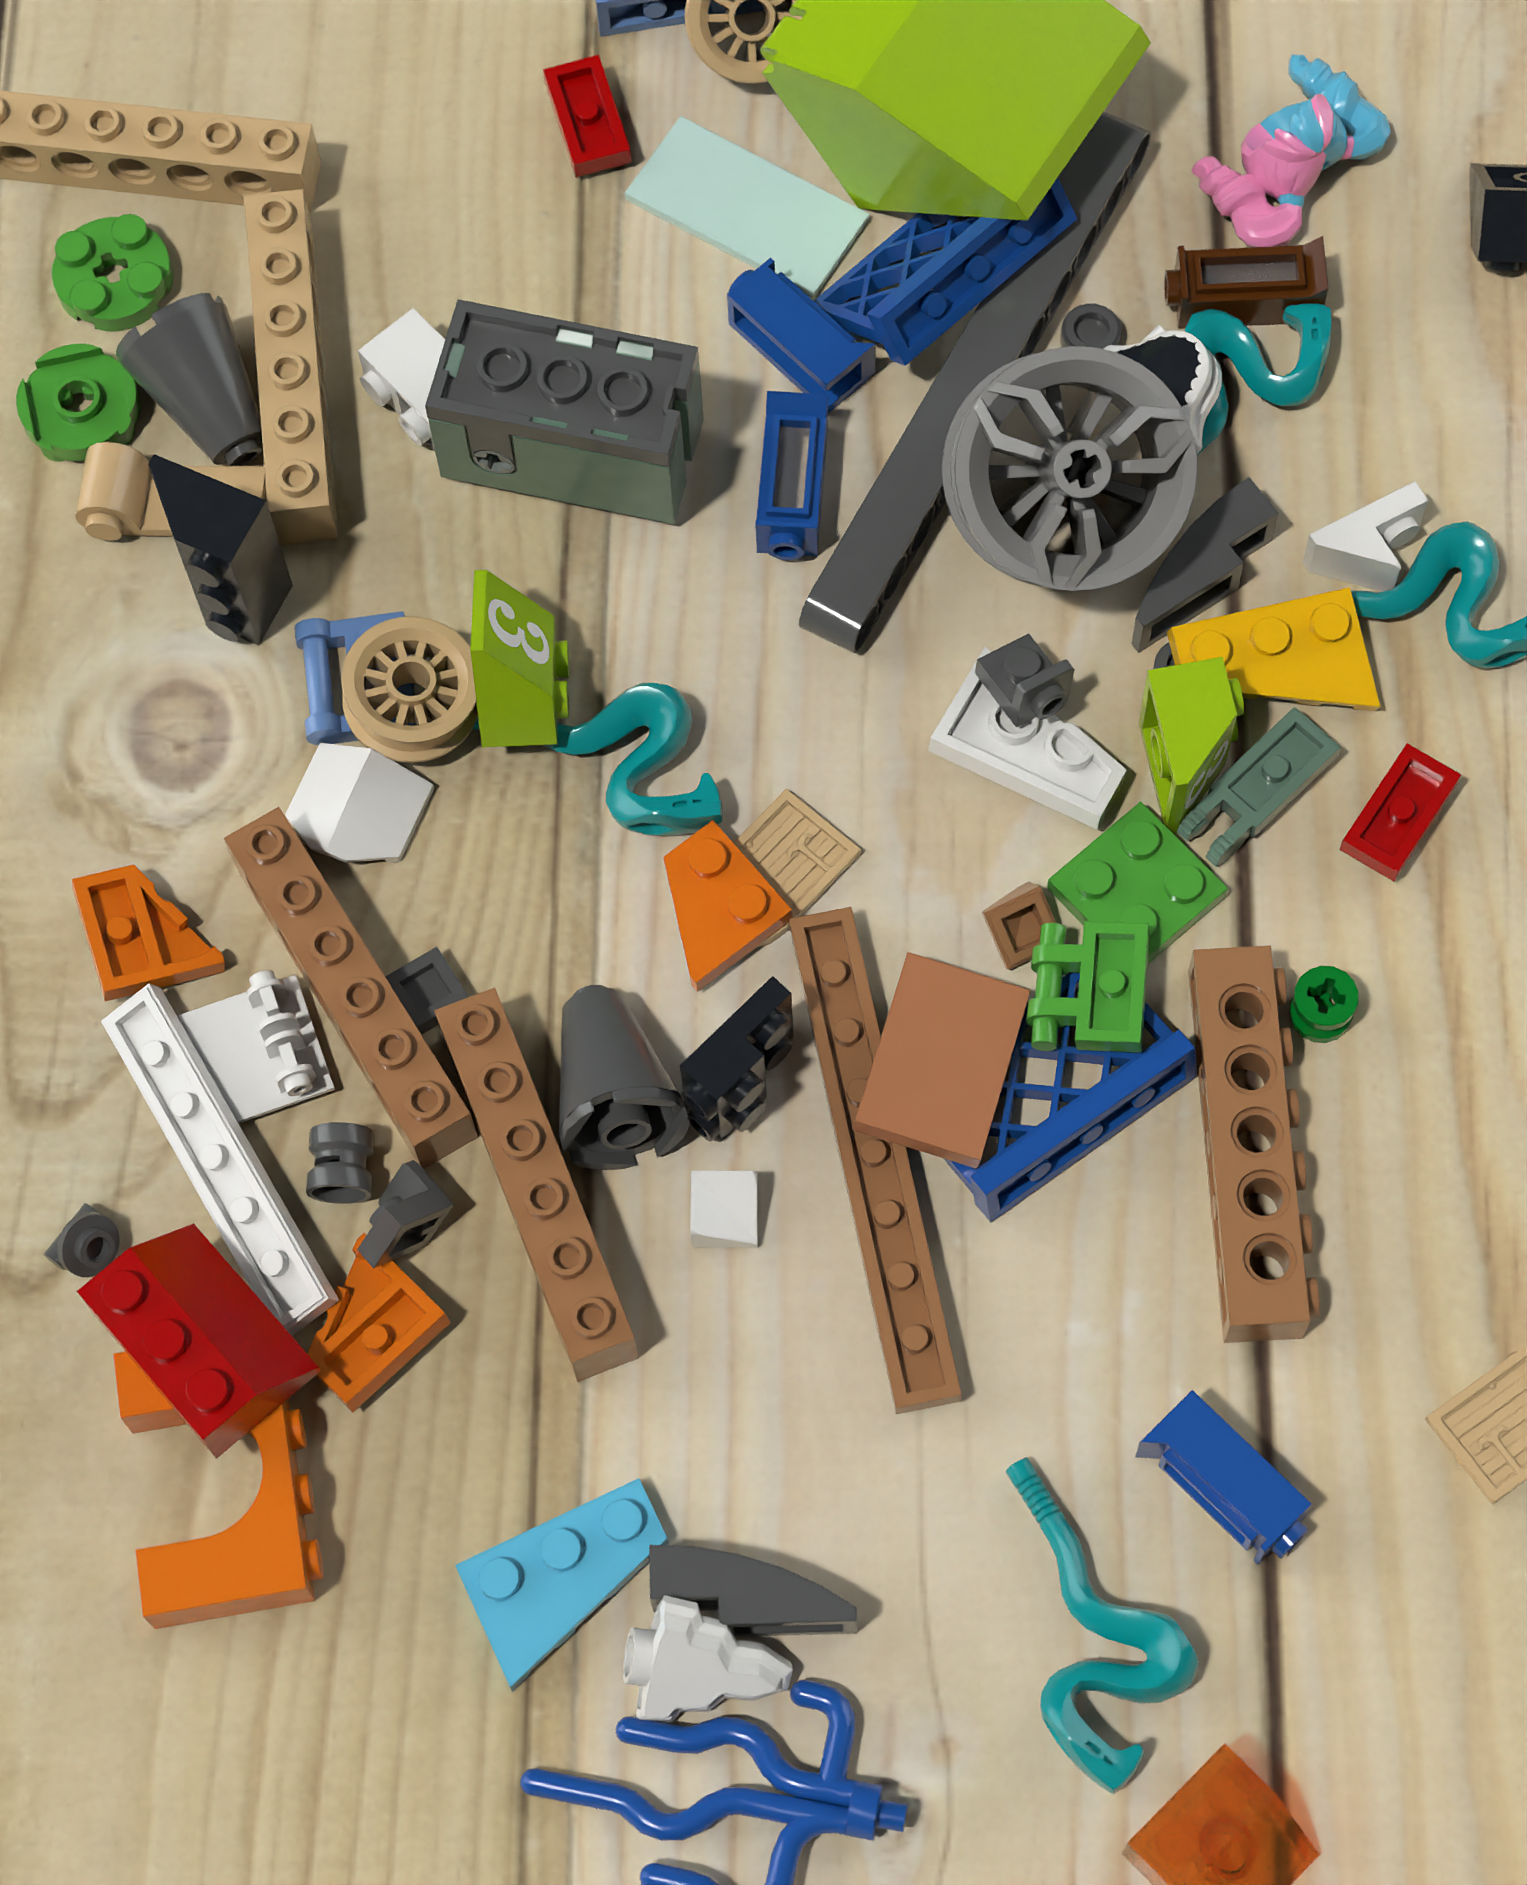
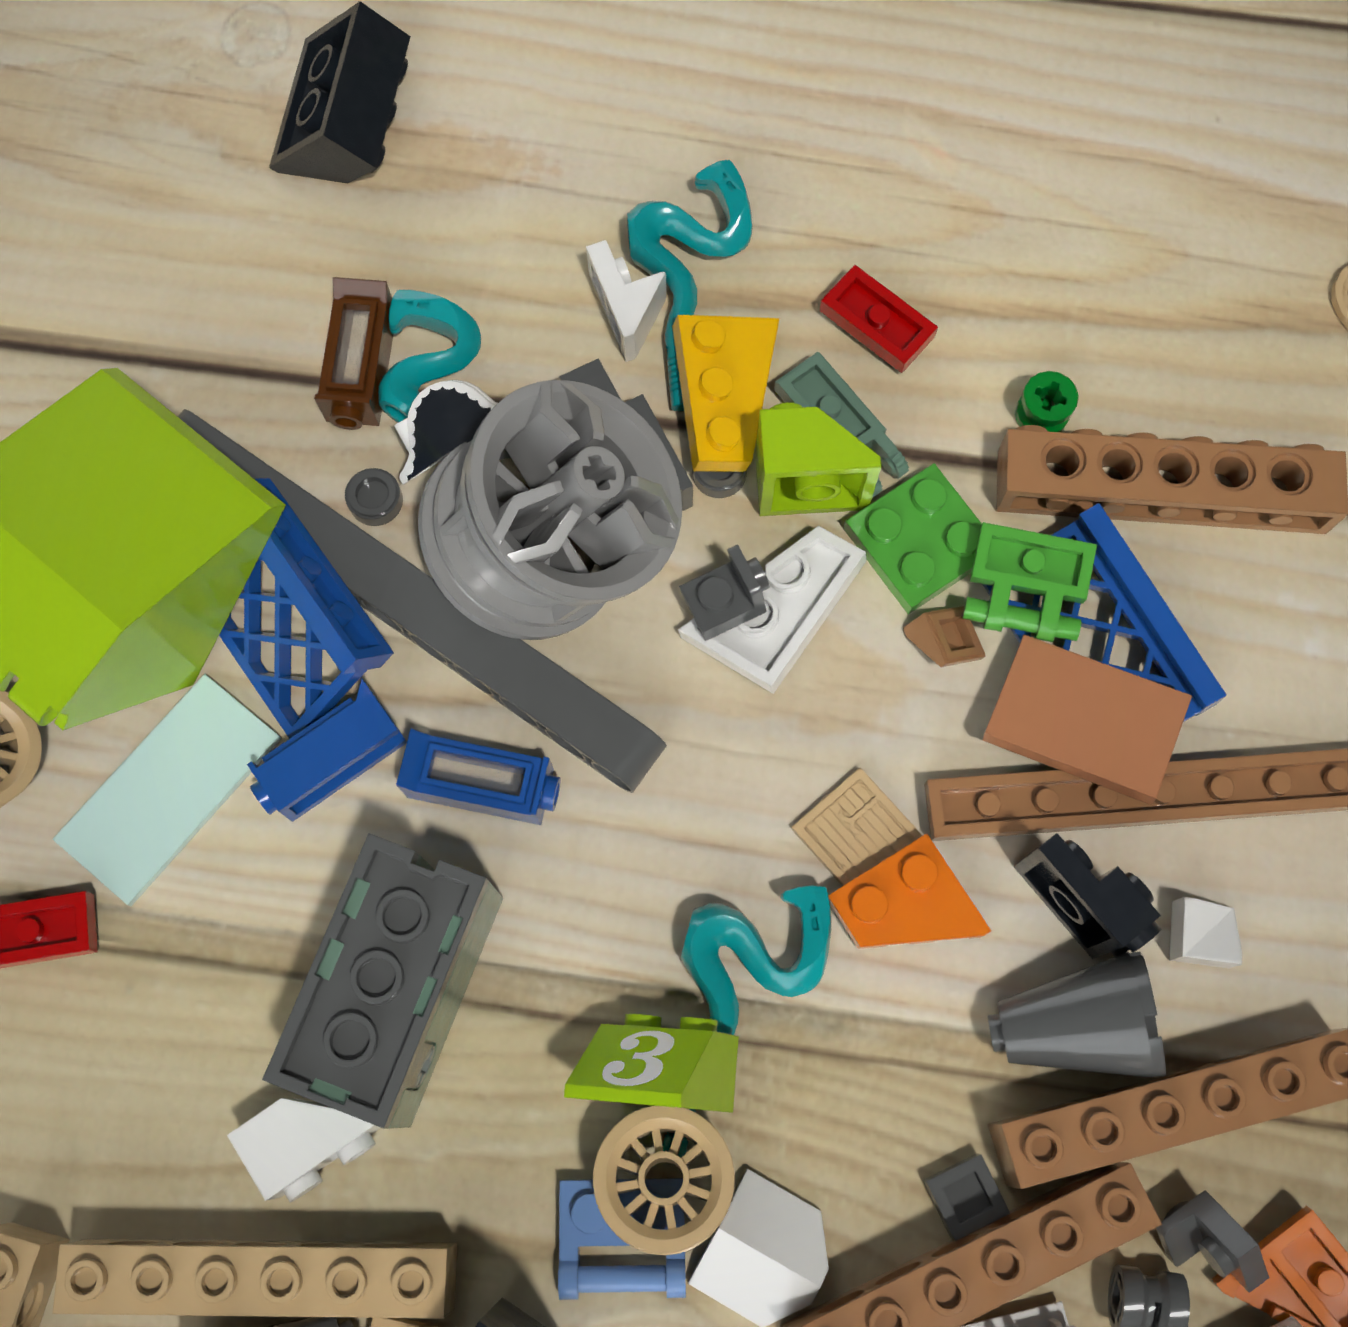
camera: 85 degrees left, 5 degrees up
(1290, 152) = (232, 299): hair -> none

